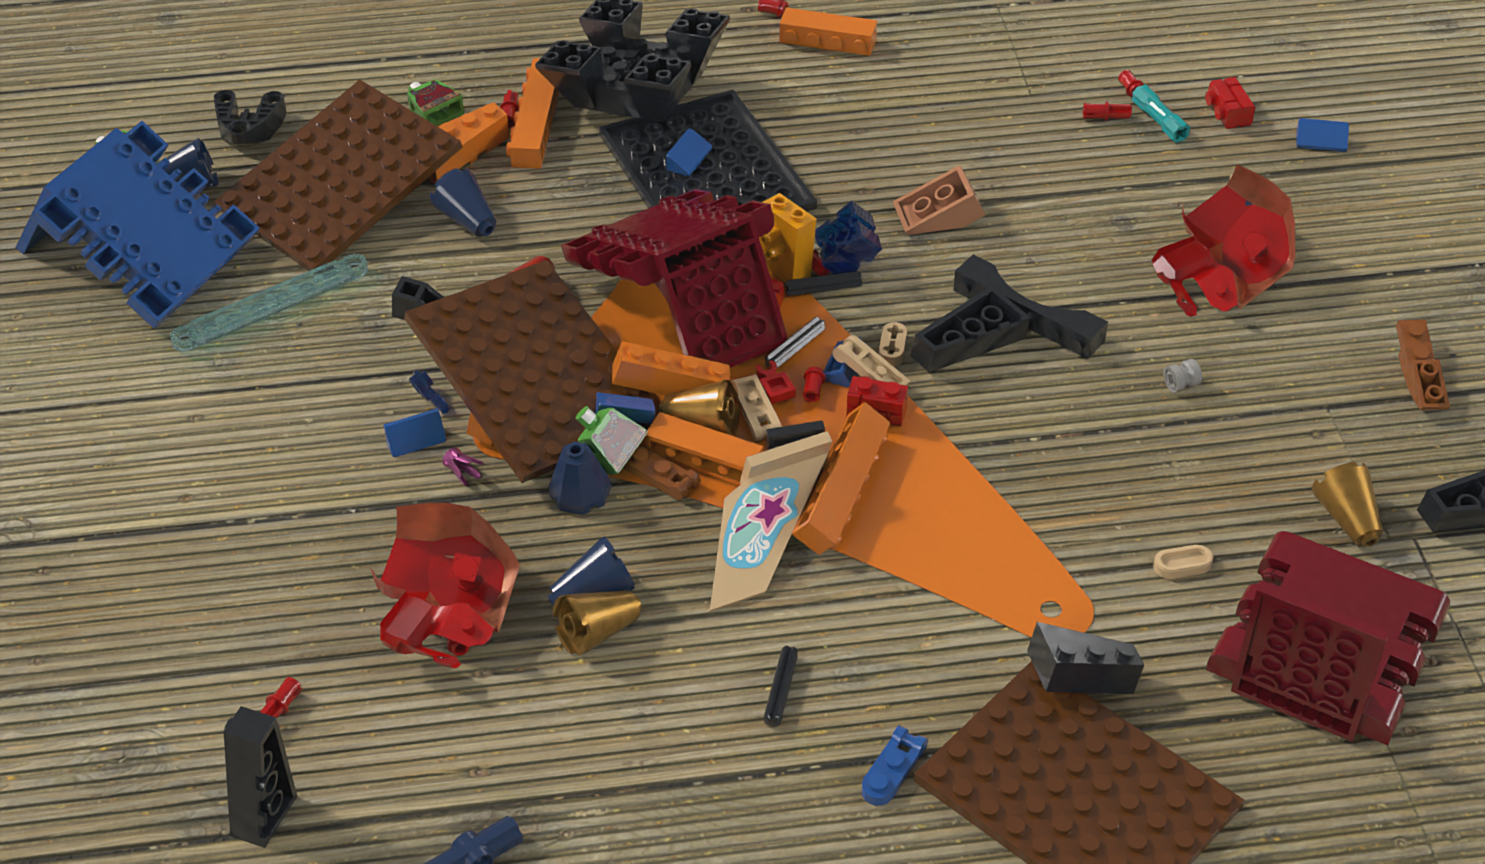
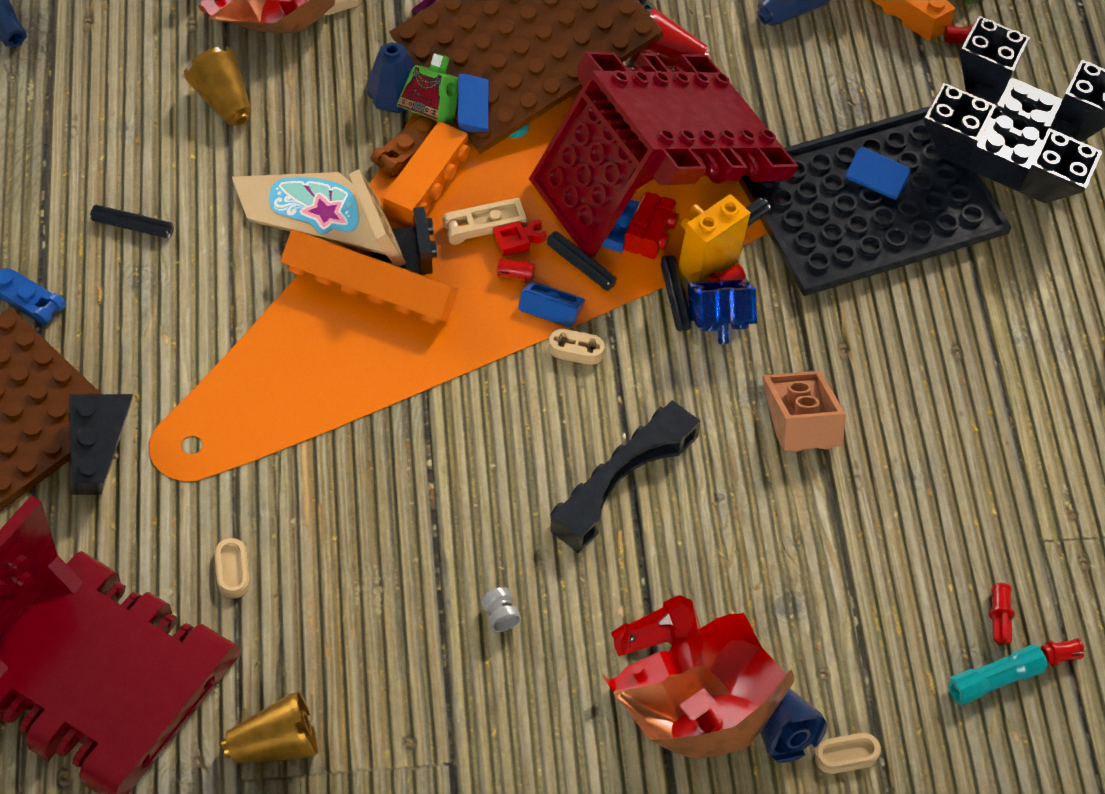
camera: 90 degrees right, 10 degrees up
(532, 121) = (940, 53): orange brick -> none
(593, 573) = (270, 89): dark blue cone -> none
(663, 370) = (514, 137): orange brick -> none
(706, 406) = (473, 175): pearl gold cone -> none
(867, 361) = (525, 313): tan plate -> none
(885, 397) = (479, 316): red brick -> none
(970, 330) = (581, 409): black wedge -> none
(1230, 103) = (1022, 760): red brick -> none

